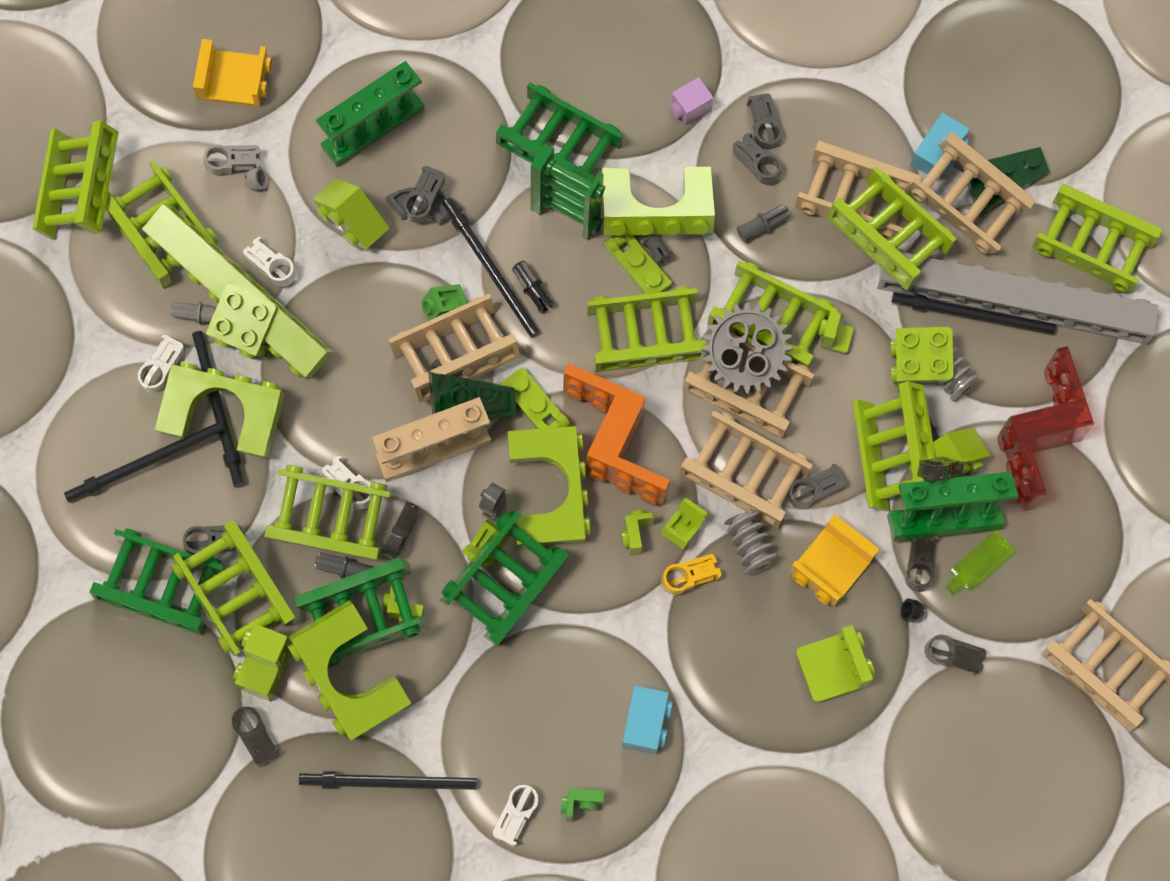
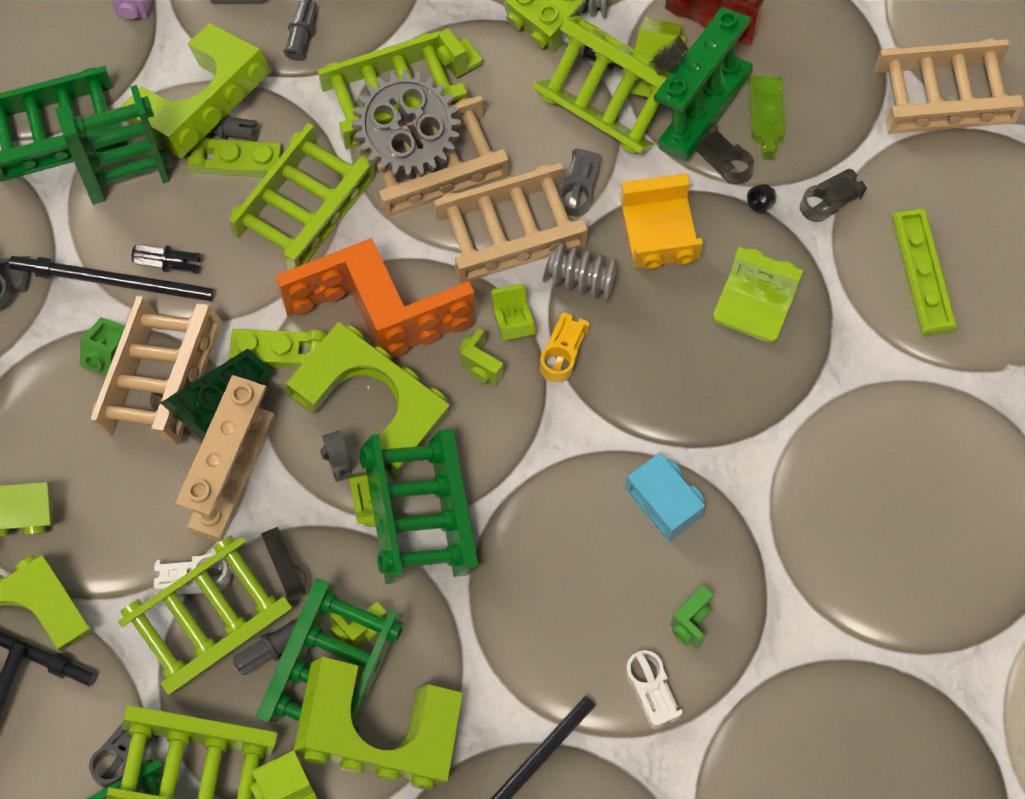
camera: 45 degrees left, 5 degrees down
(955, 757) = (923, 272): none -> lime tile

